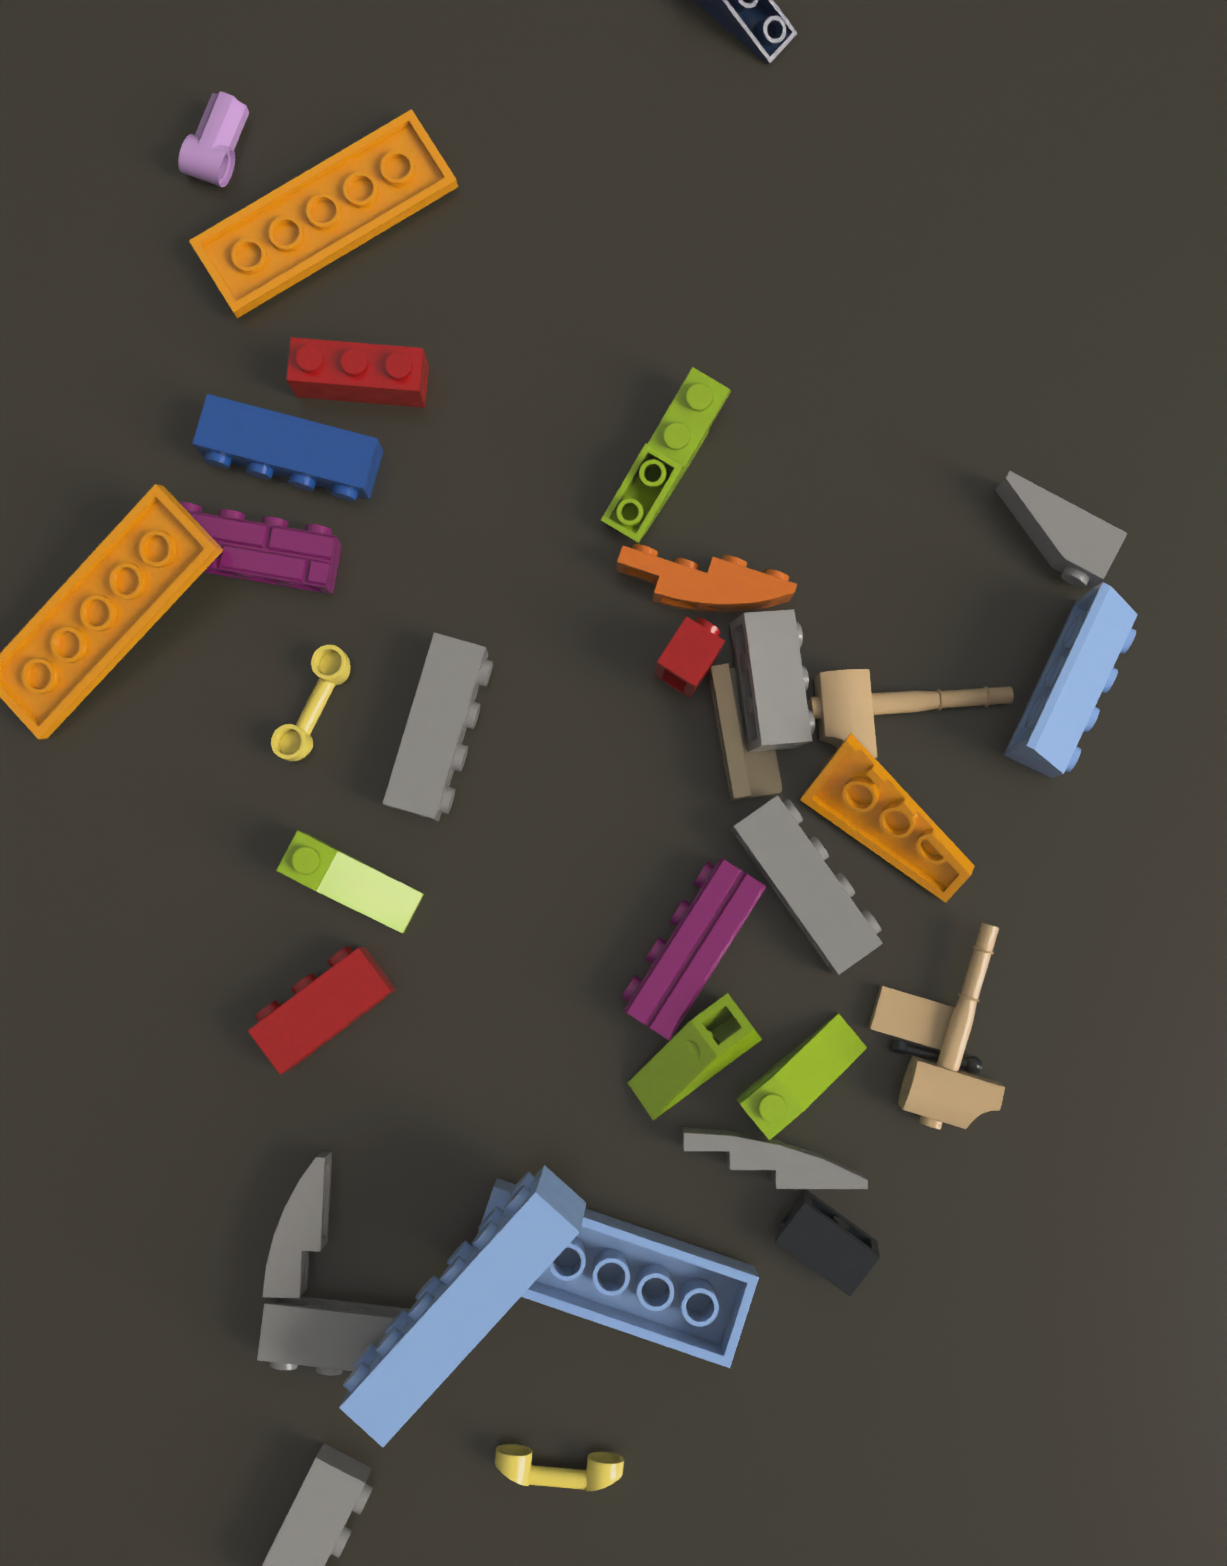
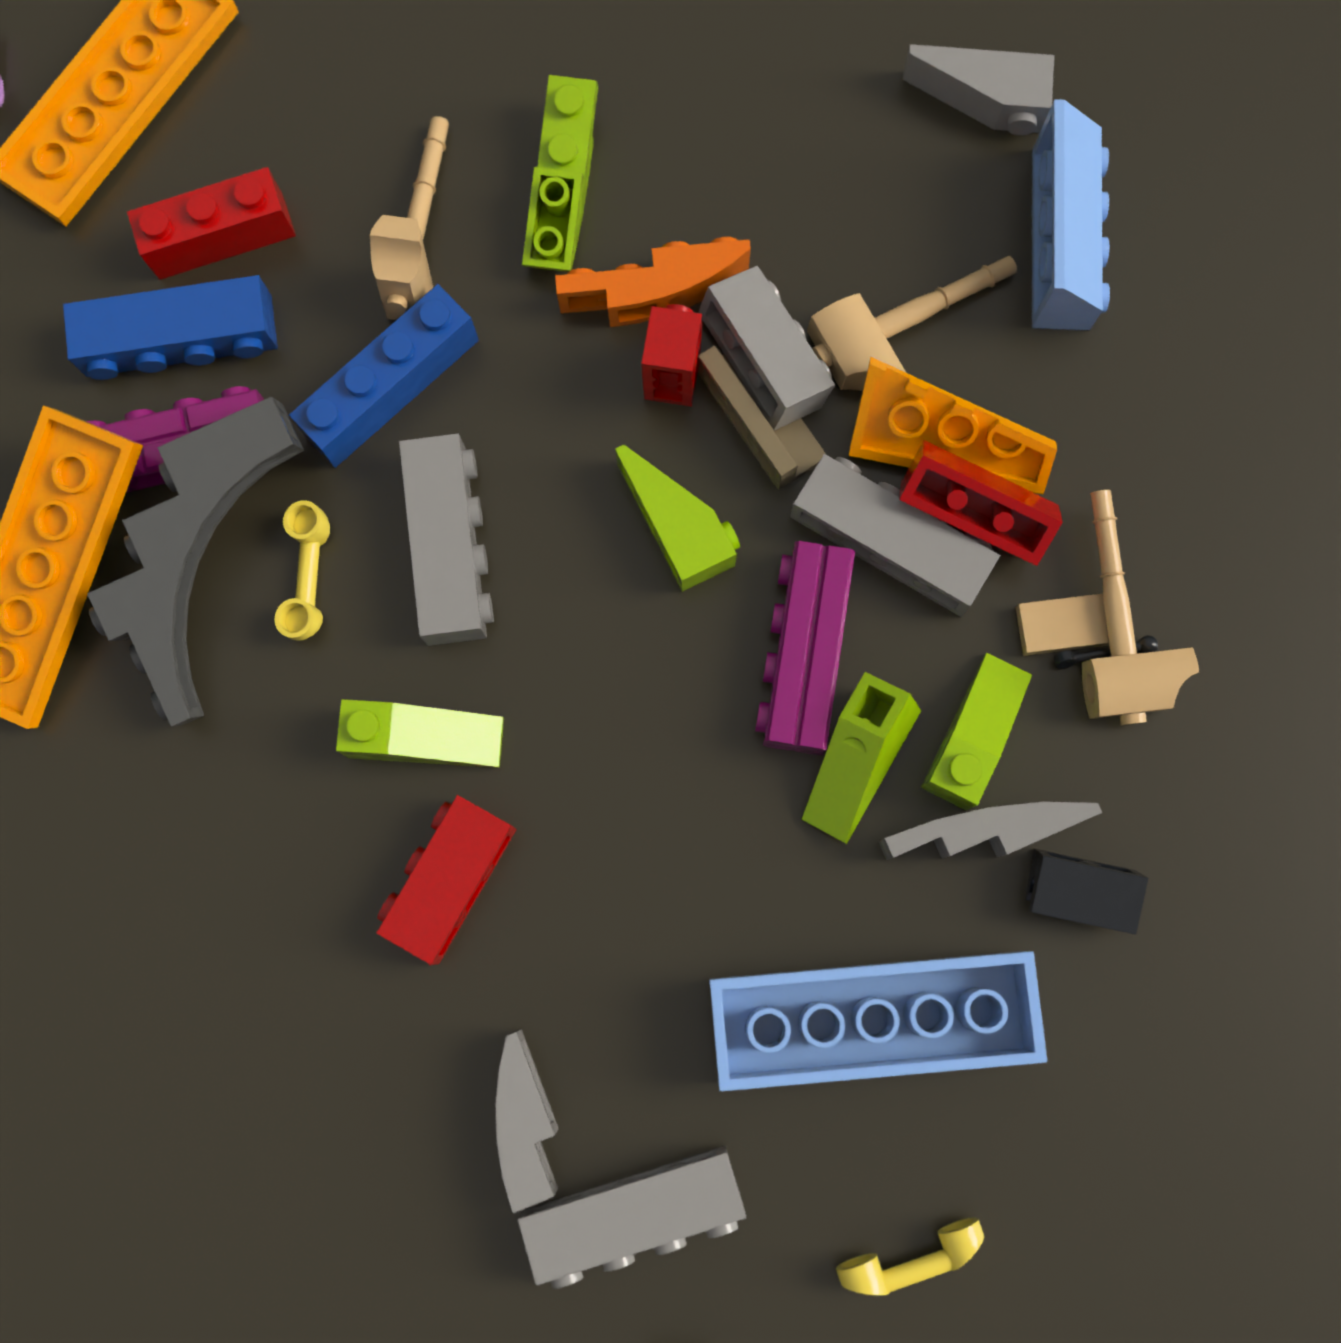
camera: 15 degrees left, 5 degrees down
(211, 637) = (151, 605): none -> dark grey arch
(446, 568) = (385, 376): none -> blue brick
(462, 1304) = (734, 1118): light blue brick -> none
(500, 468) = (397, 242): none -> tan piece
(636, 802) = (680, 522): none -> lime slope
(887, 892) = (980, 503): none -> red brick

